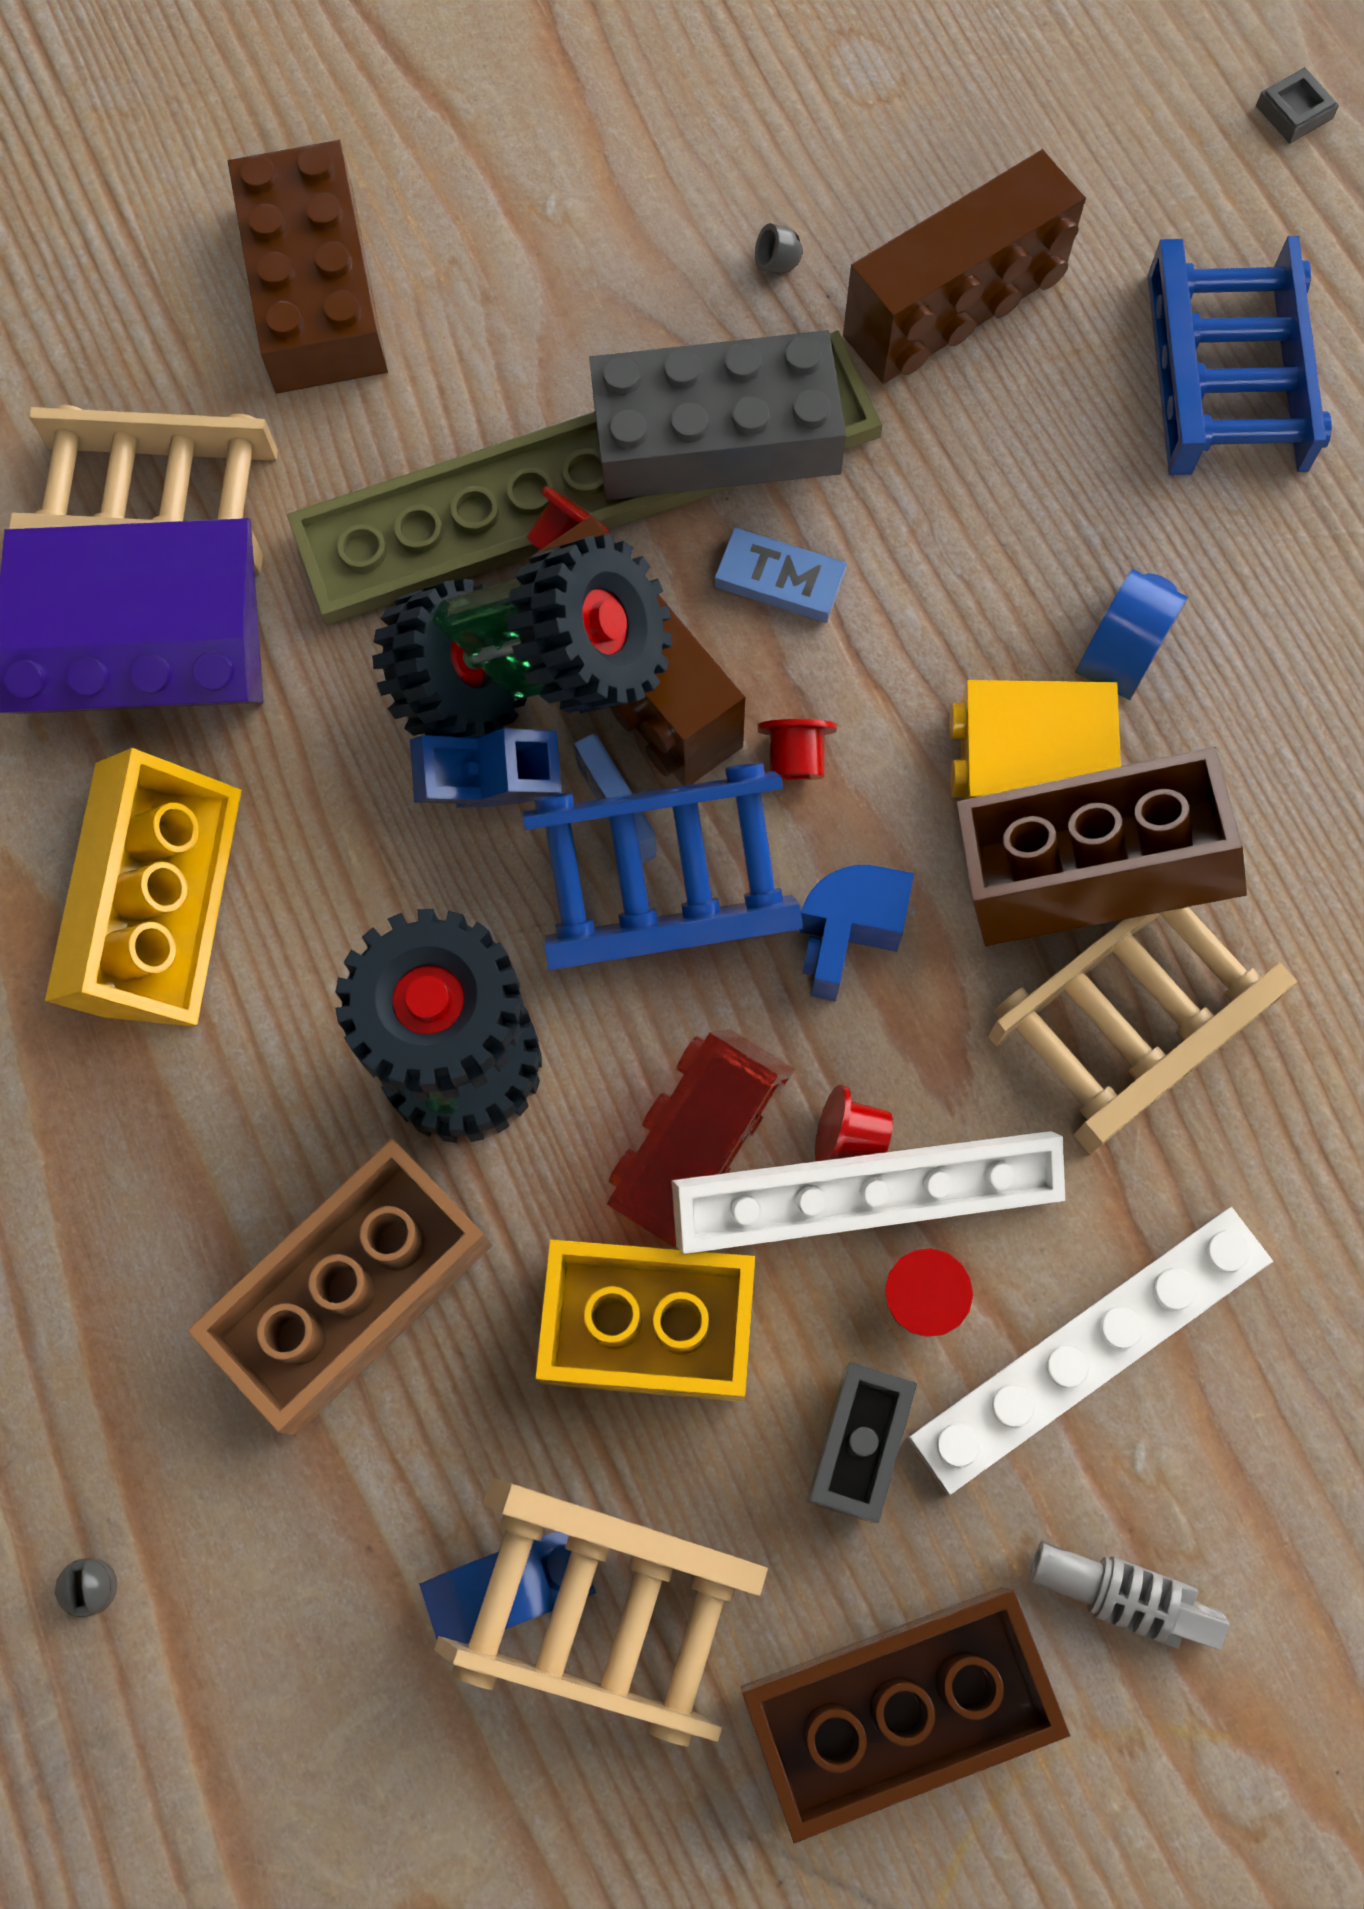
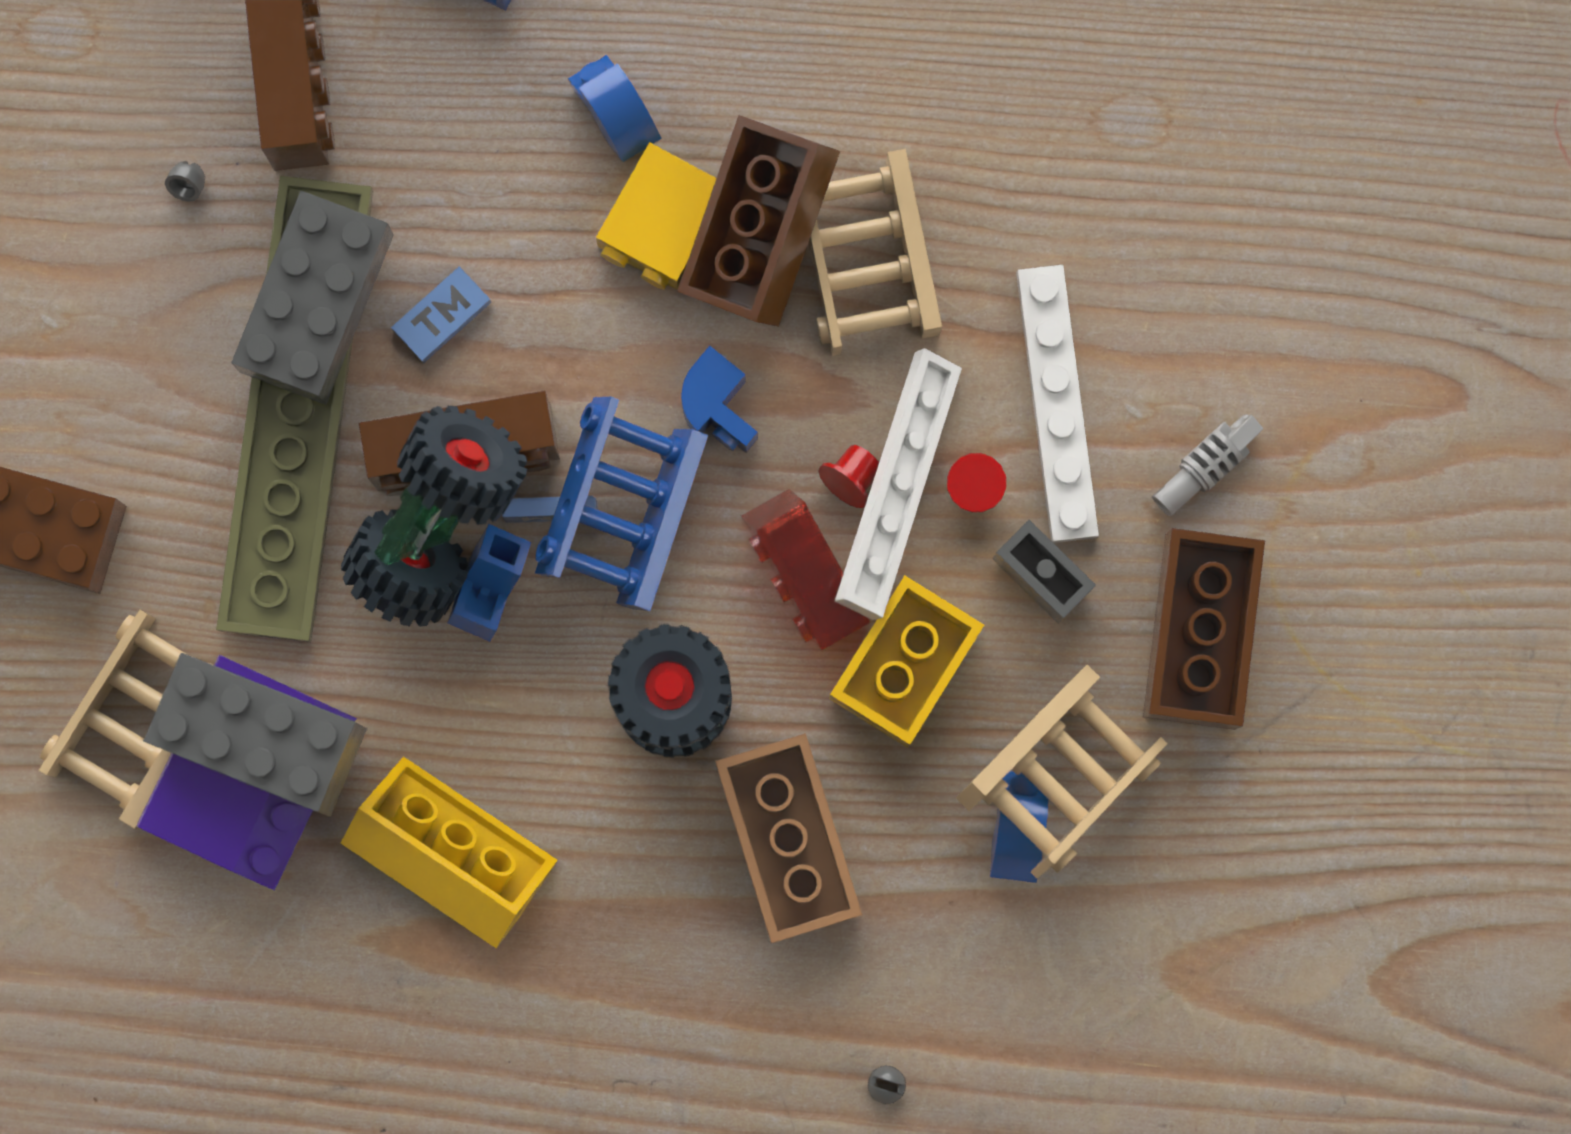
camera: 70 degrees left, 10 degrees up
(157, 586) = (255, 734): none -> dark grey brick
(556, 519) = (339, 443): red piece -> none
(797, 747) = (578, 372): red piece -> none

